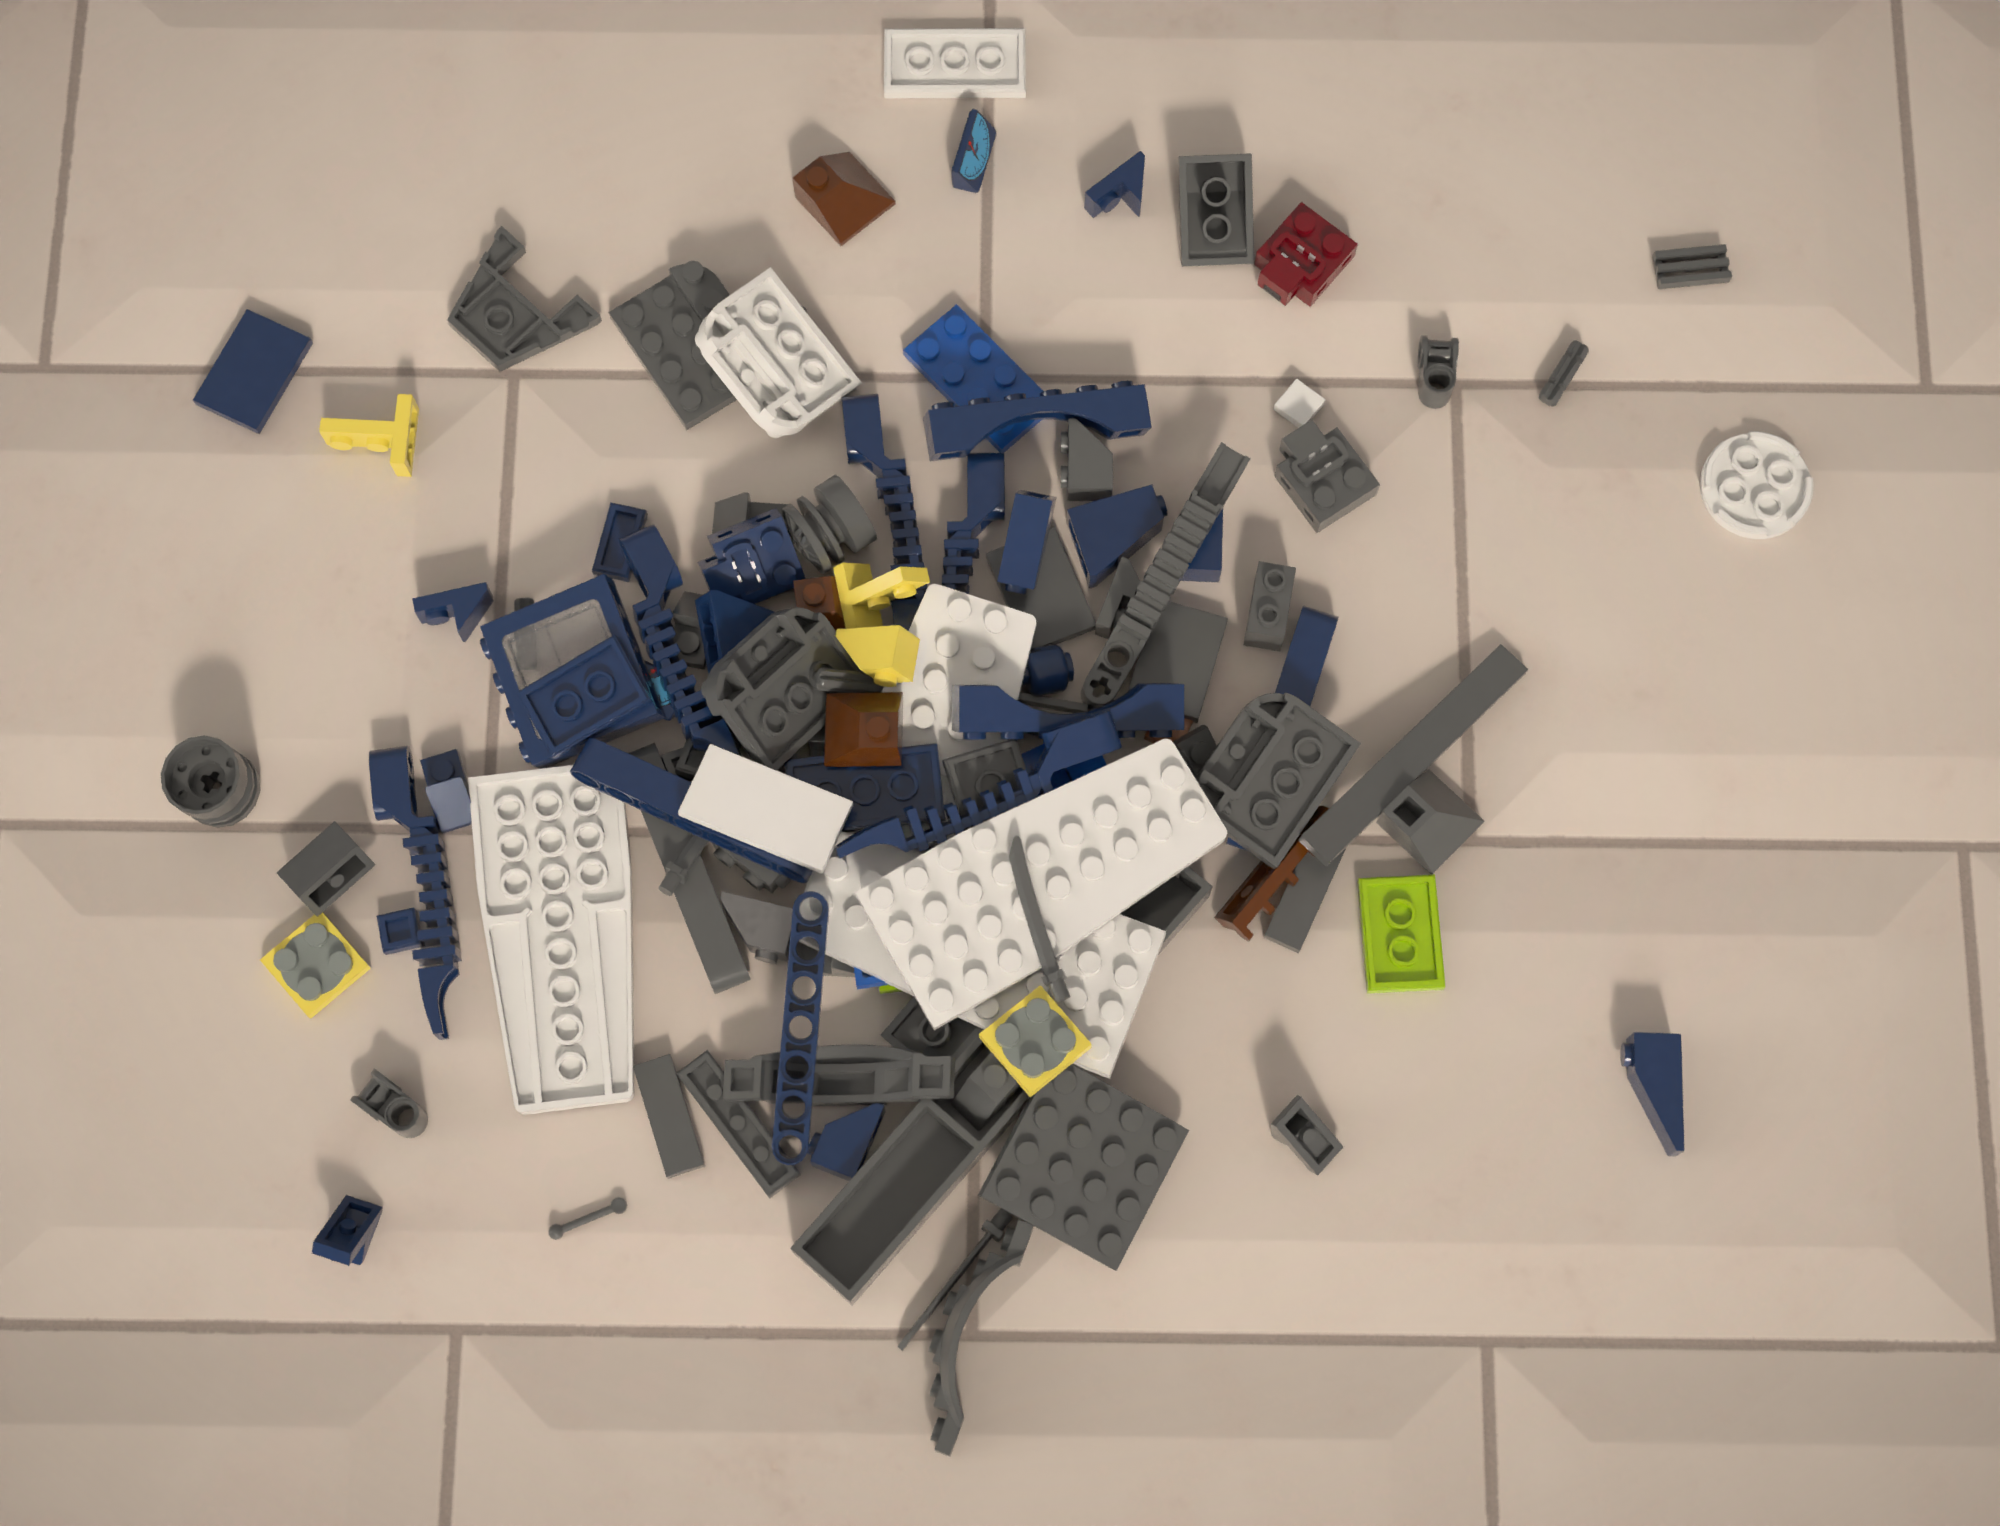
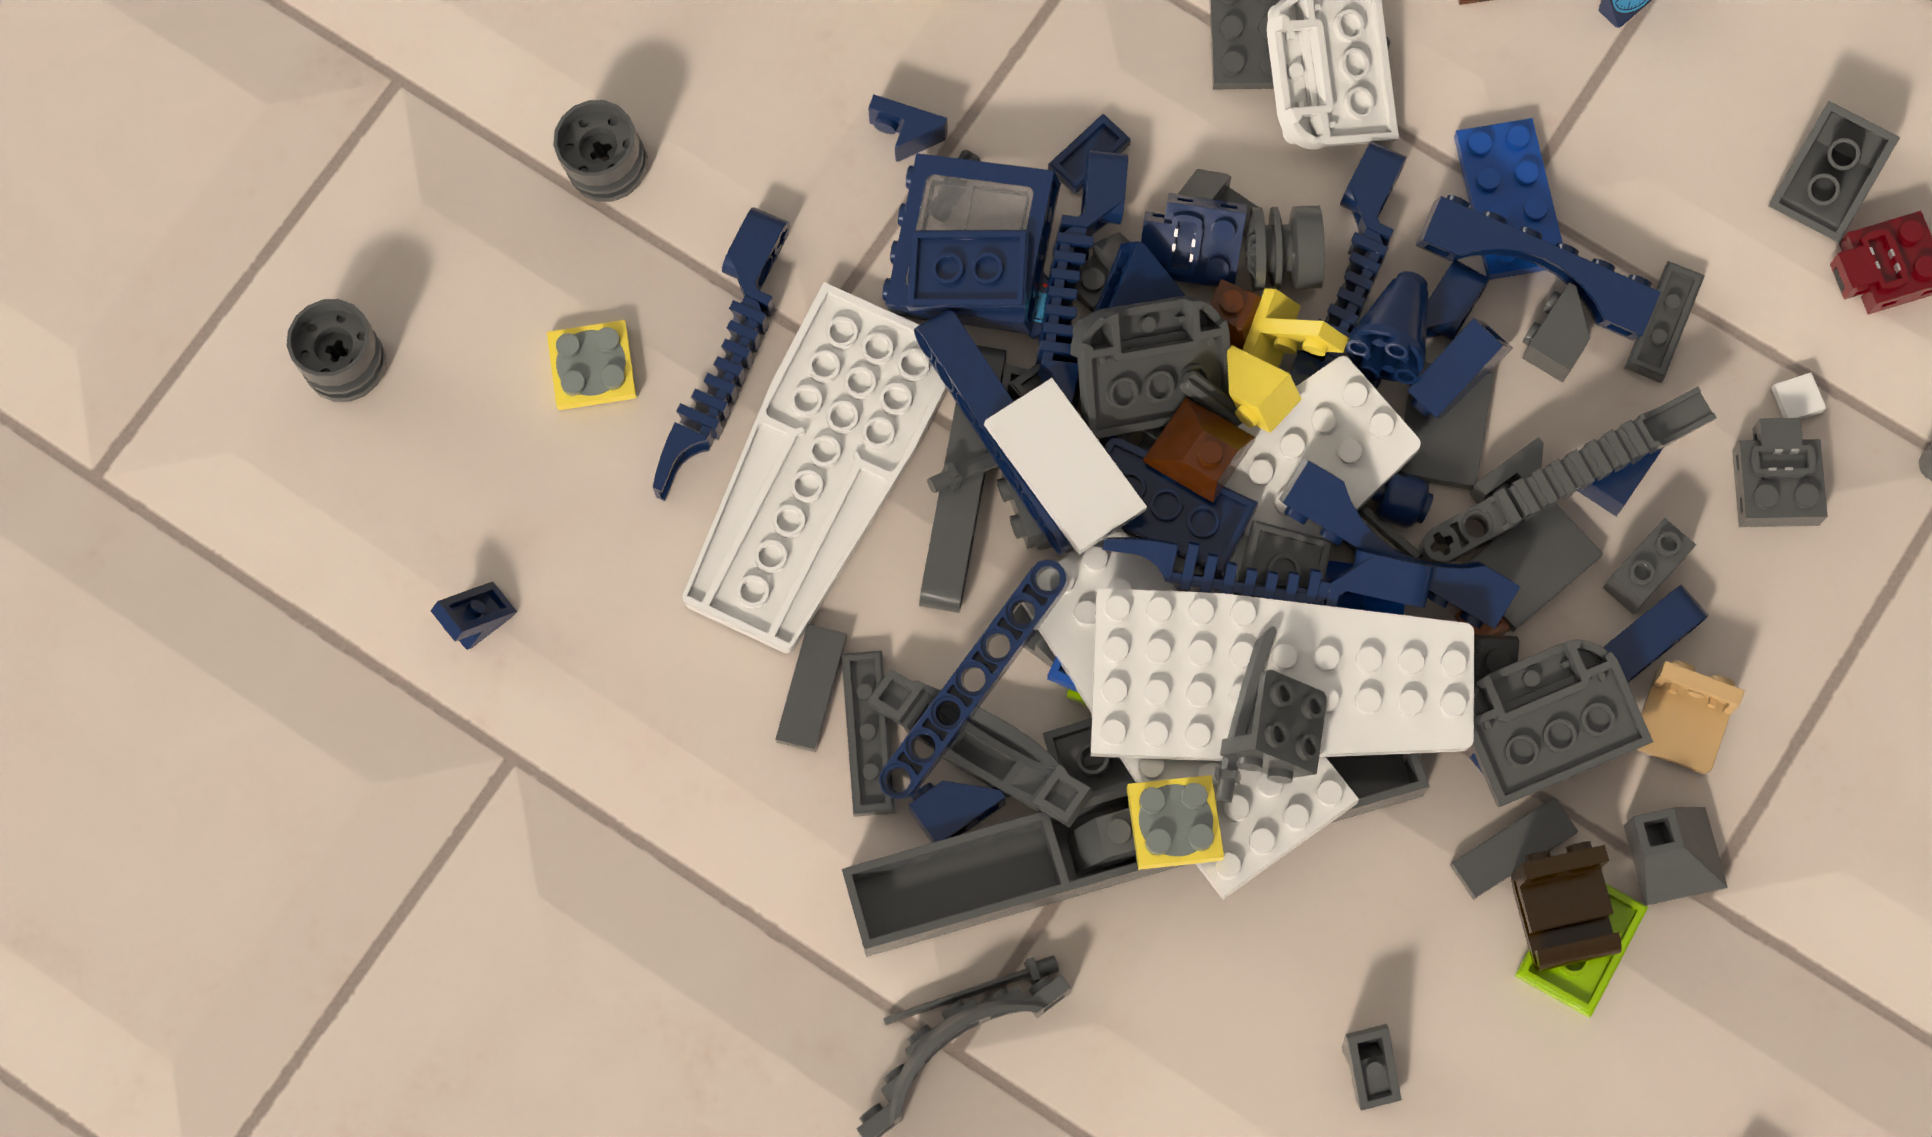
camera: 35 degrees right, 0 degrees up
(71, 1077) = (327, 334): none -> dark grey wheel
(325, 868) = (651, 286): dark grey brick -> none
(386, 1102) = (575, 523): dark grey piece -> none
(399, 931) = (680, 380): dark blue tile -> none
(447, 790) = (799, 282): slope -> none
(618, 1206) = (717, 738): dark grey hinge -> none
(761, 925) = (997, 568): flat silver slope -> none
(958, 542) = (1393, 332): none -> dark blue cone
(1078, 914) = (1284, 730): none -> dark grey bracket
(1084, 1164) = (1152, 963): dark grey plate -> none
(1114, 529) = (1548, 408): dark blue slope -> none
(1122, 183) = (1760, 96): dark blue slope -> none
(1167, 434) = (1655, 349): none -> dark grey tile
(1261, 885) = (1483, 813): reddish brown hinge -> none
(1371, 703) = (1688, 715): none -> tan bracket
(1374, 915) = (1565, 906): none -> dark brown piece
(1412, 755) = (1698, 783): dark grey tile -> none

